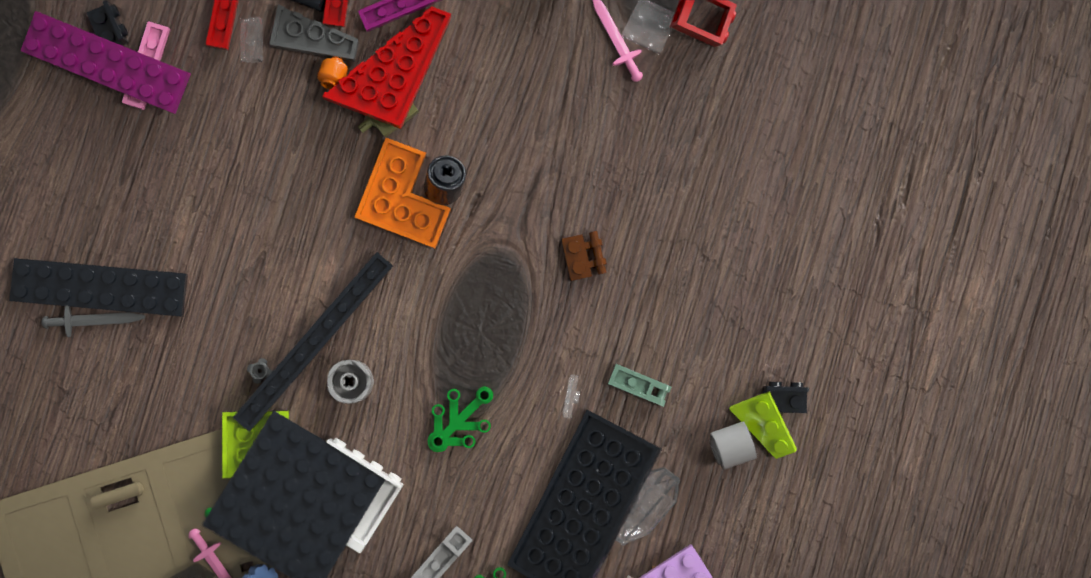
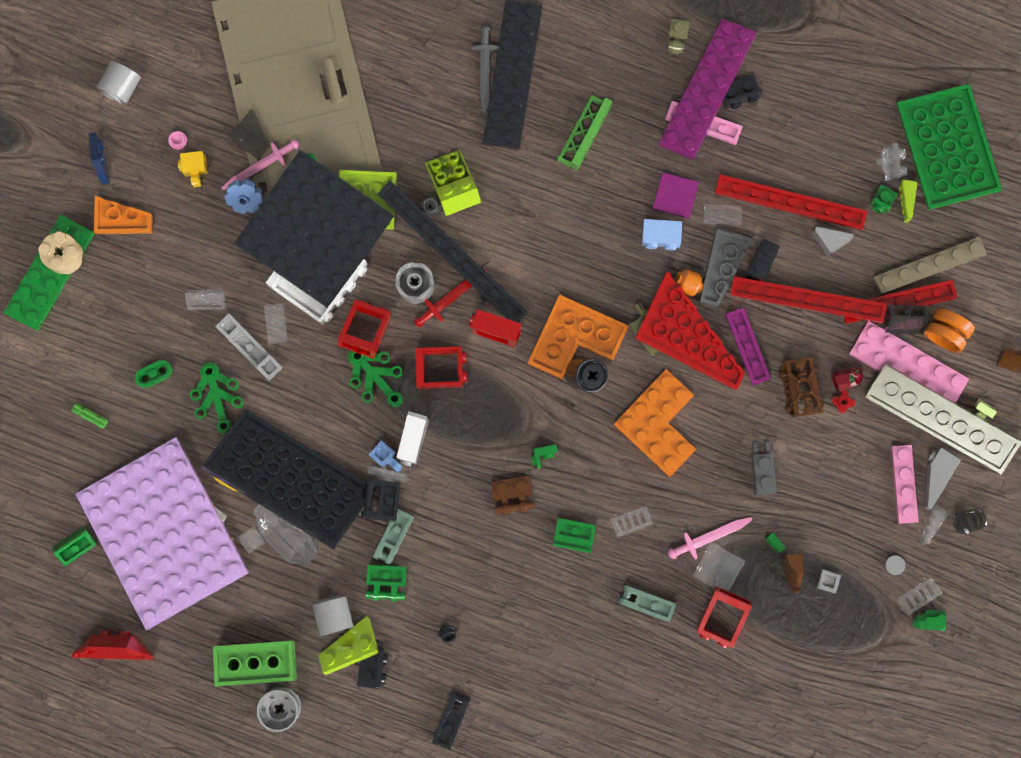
camera: 100 degrees right, 5 degrees down
(39, 100) = (678, 32): none -> olive plate
(163, 191) = (590, 132): none -> bright green fence
(230, 346) = (453, 182): none -> lime slope
(232, 93) = (675, 195): none -> magenta tile
(278, 105) = (661, 234): none -> light blue brick
(378, 356) = (442, 303): none -> red sword
(398, 285) = (495, 328): none -> red window
(406, 537) = (276, 323): none -> clear plate
(426, 440) = (356, 344): none -> red window
(449, 368) = (420, 367): none -> red window
(493, 111) = (648, 423): none -> orange plate
(530, 371) = (412, 438): none -> slope
(534, 221) = (545, 452): none -> green bracket
(549, 402) = (384, 455): none -> medium blue plate
(601, 394) = (387, 500): none -> black plate
(613, 138) = (616, 527): none -> clear slope
(624, 184) = (574, 535): none -> green plate
(654, 544) = (251, 540): none -> clear plate
(683, 389) = (387, 576): none -> green plate
(694, 100) = (647, 603): none -> sand green plate
(742, 317) = (447, 633): none -> black plate
(804, 536) = (246, 674): none -> bright green brick
(836, 307) = (451, 721): none -> black plate
(851, 494) = (268, 713): none -> light grey wheel

